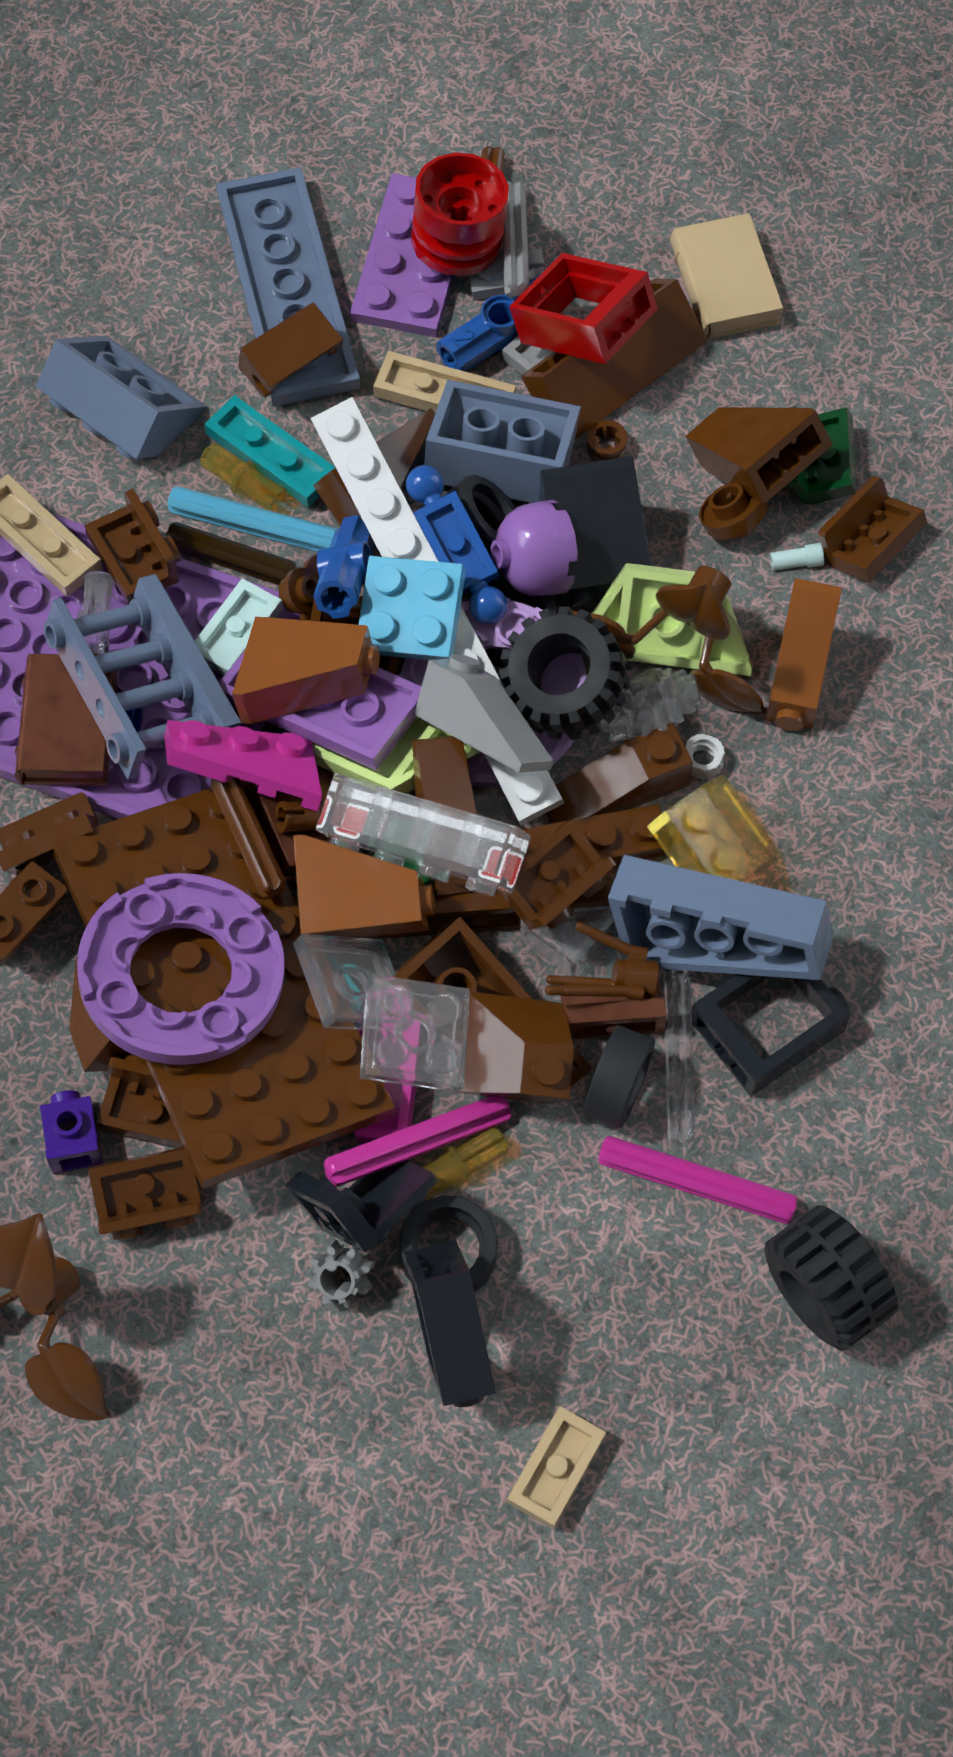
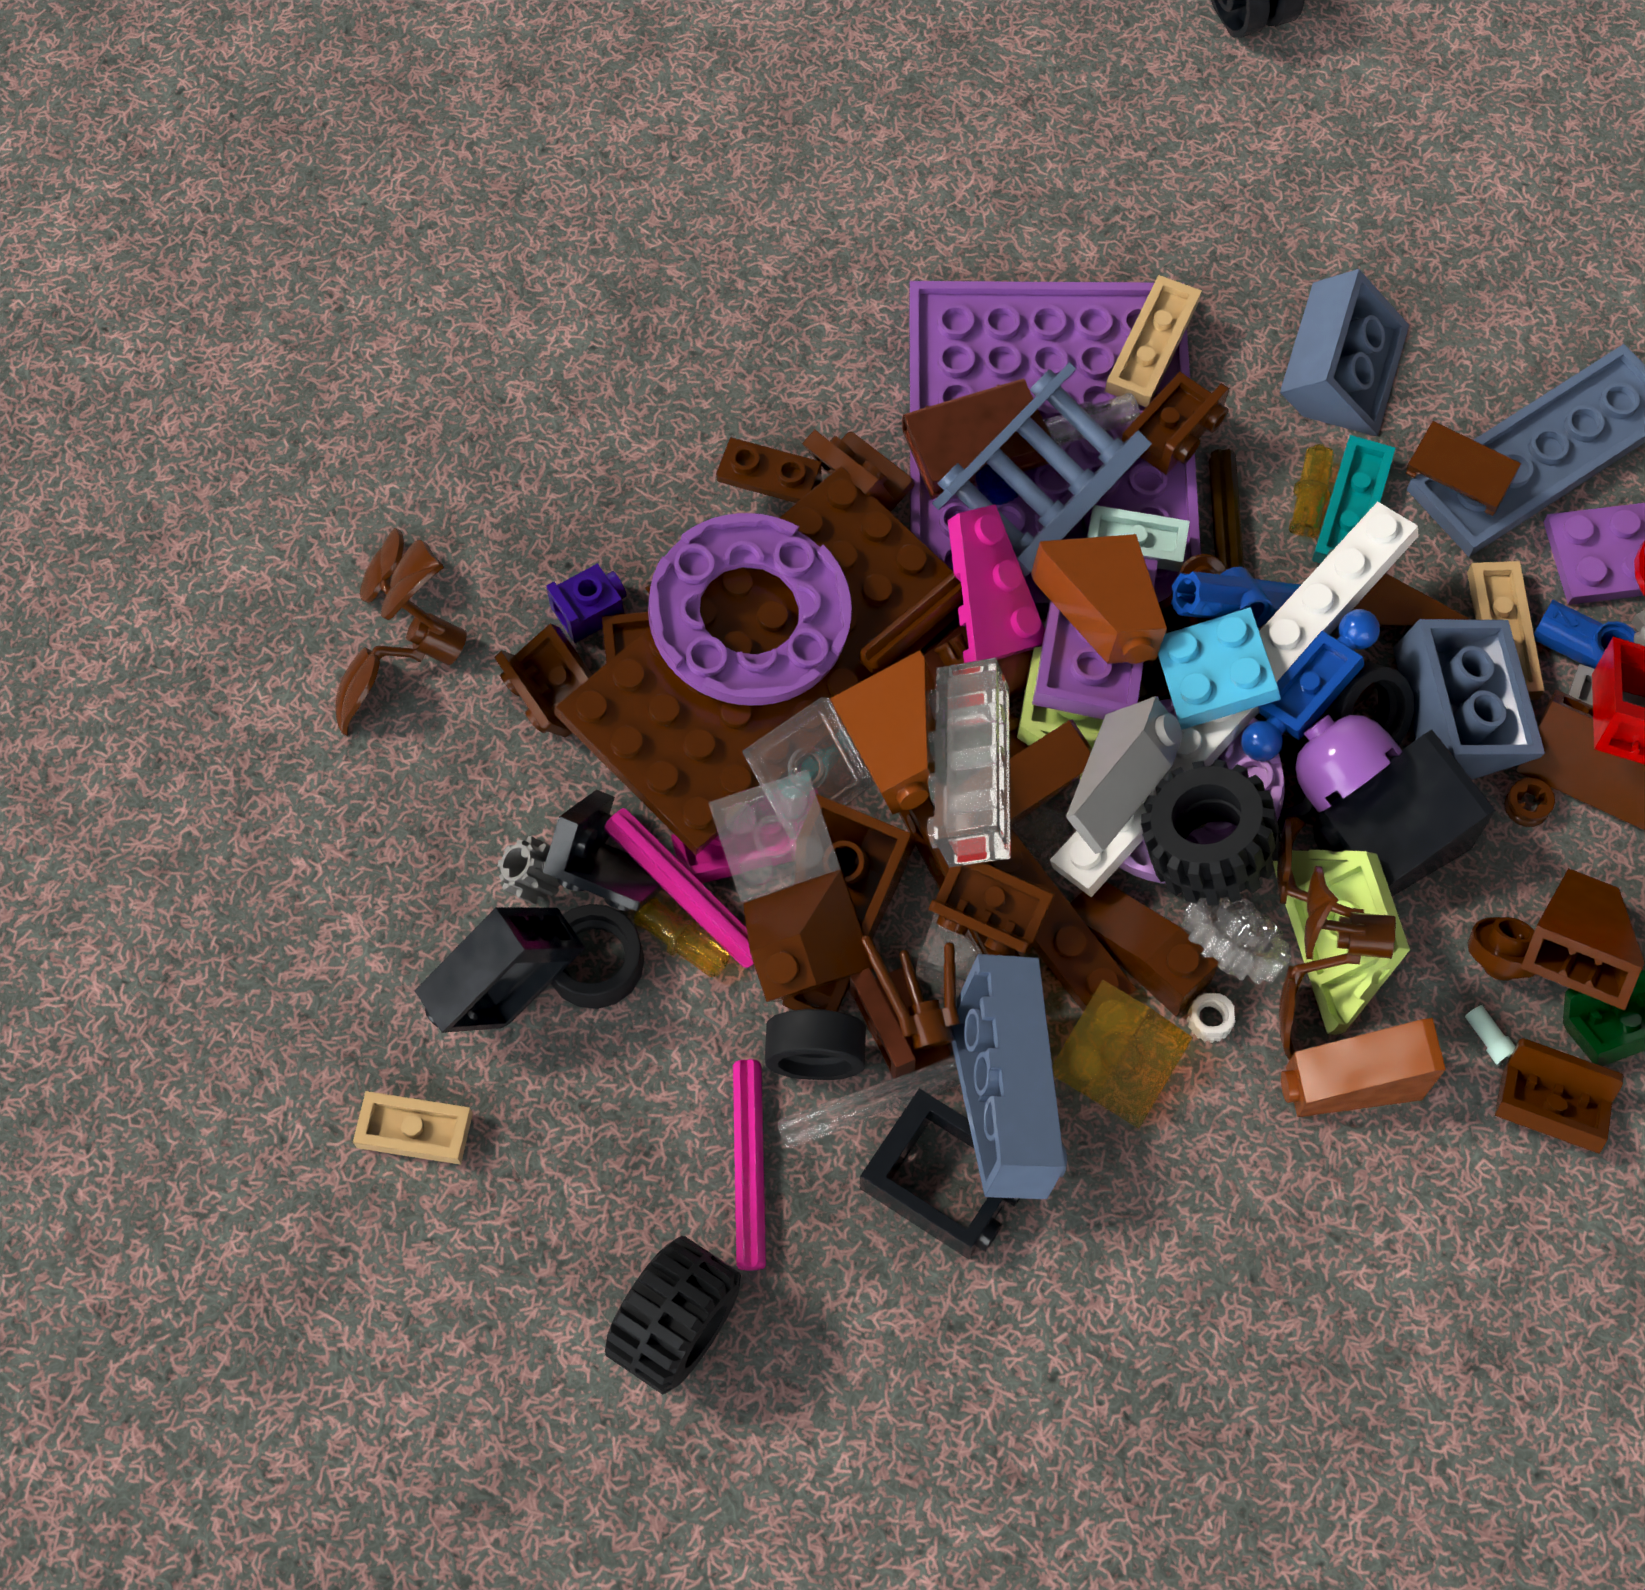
camera: 70 degrees right, 0 degrees up
(250, 519) = (1271, 510): medium azure axle -> none

